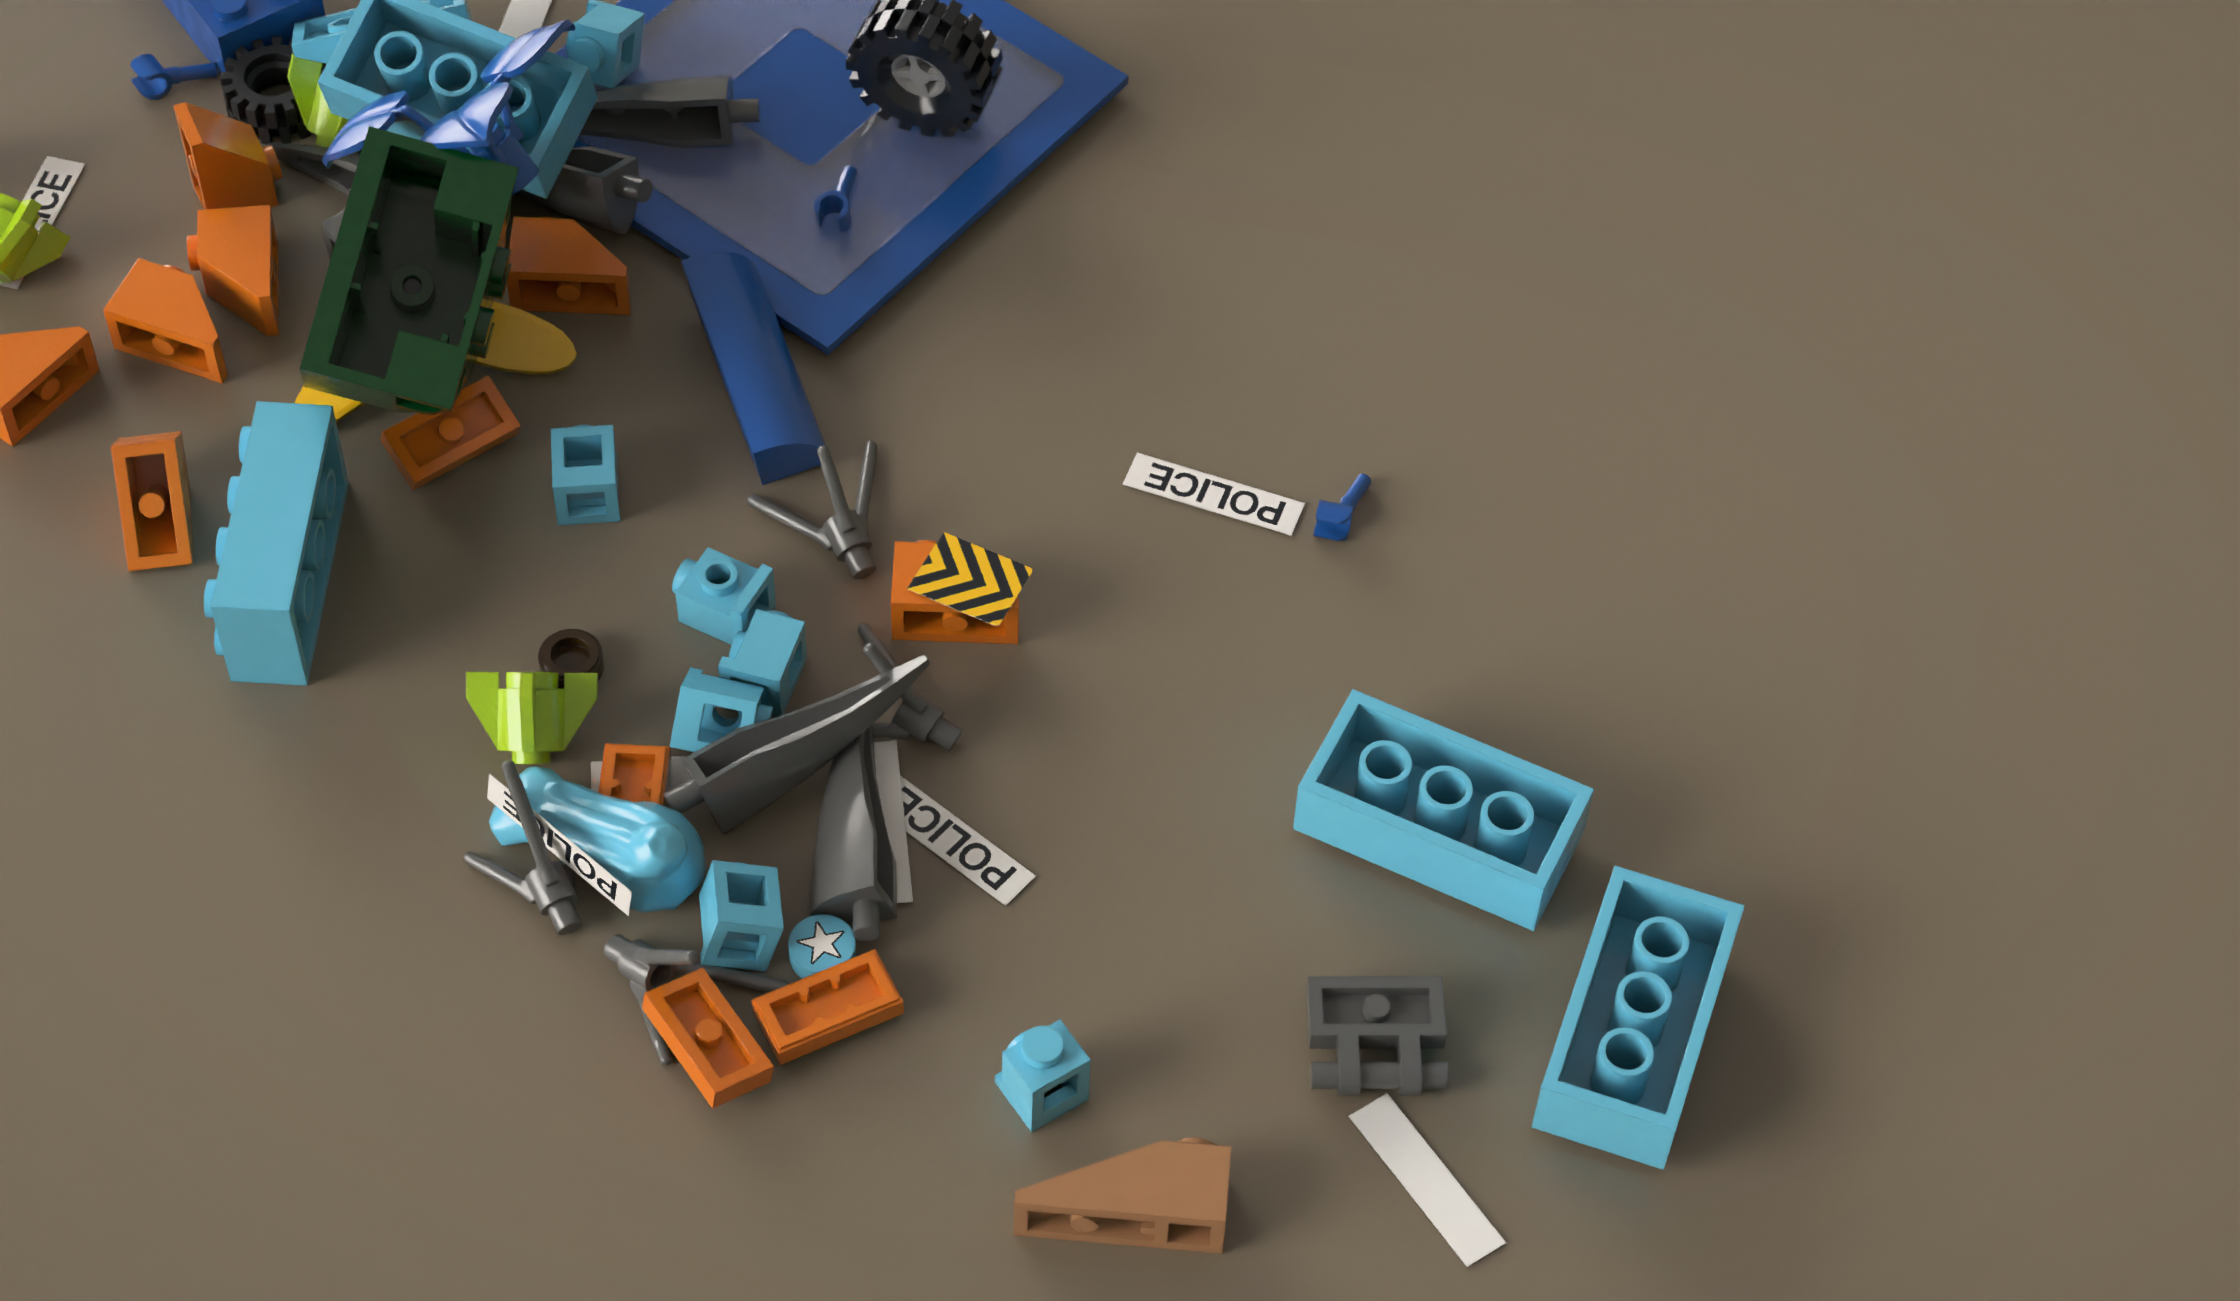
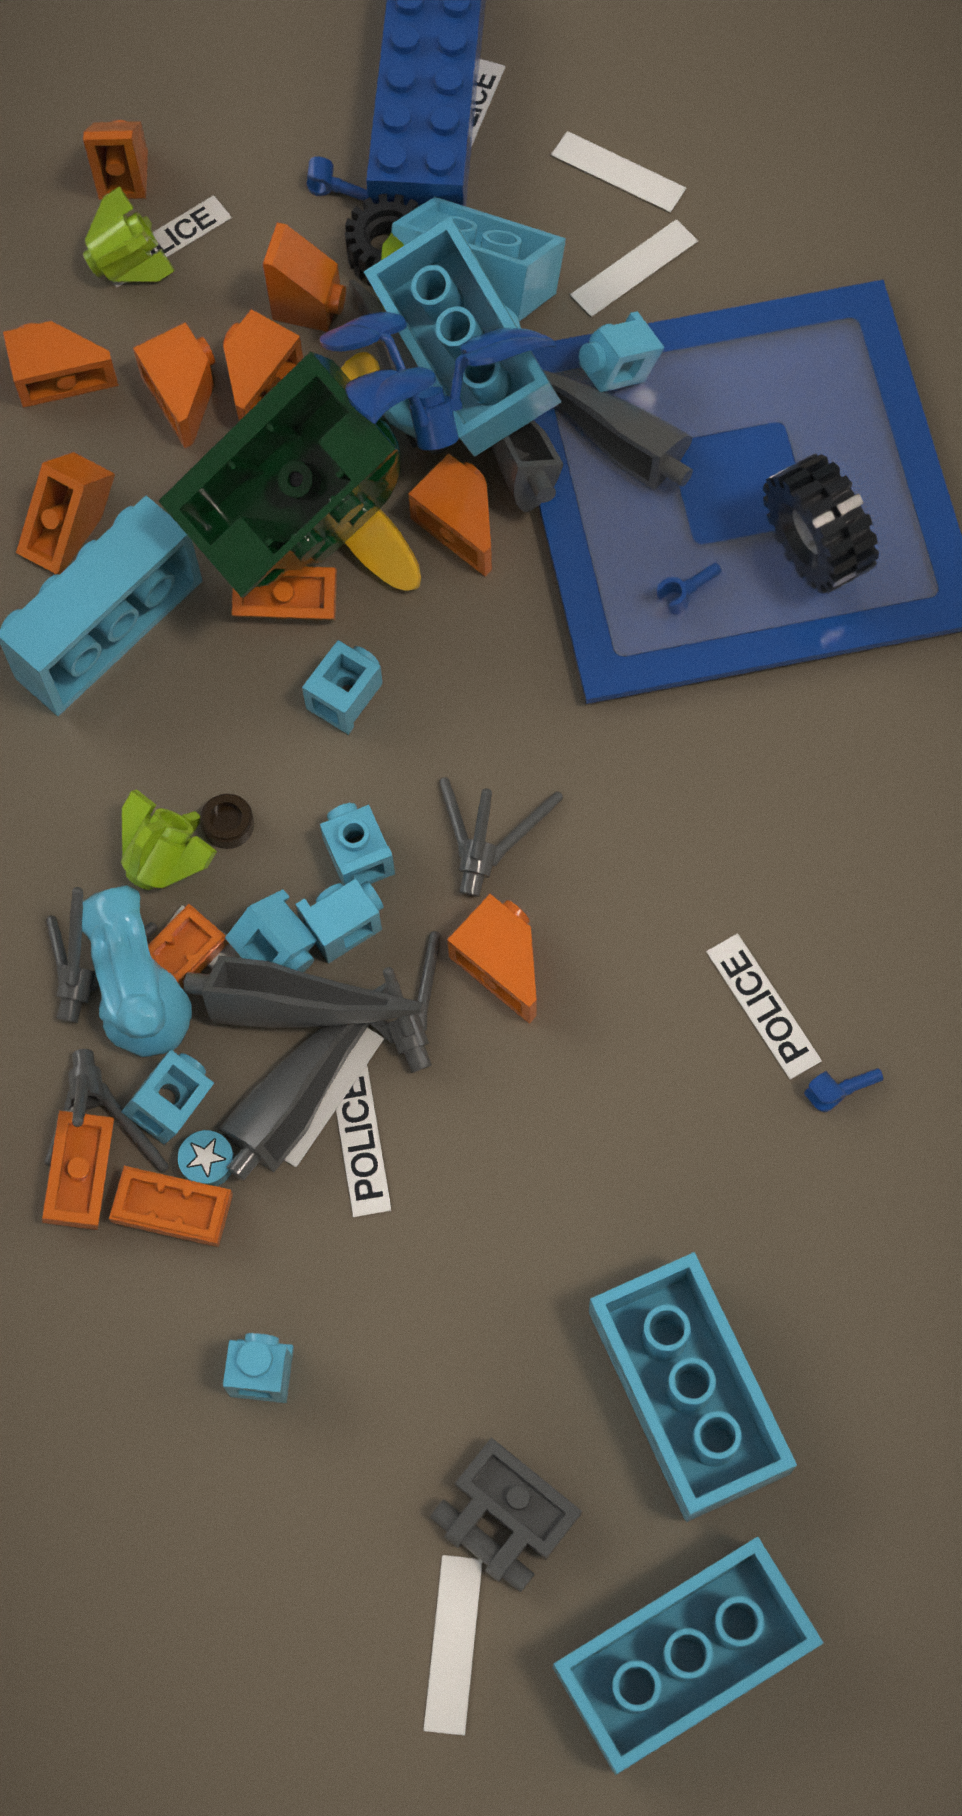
camera: 45 degrees right, 15 degrees up
(565, 850) = (92, 977): white sticker -> none
(754, 364) = (520, 680): blue brick -> none
(970, 579) = (514, 961): sticker -> none
(1143, 1198) = (250, 1511): medium nougat slope -> none

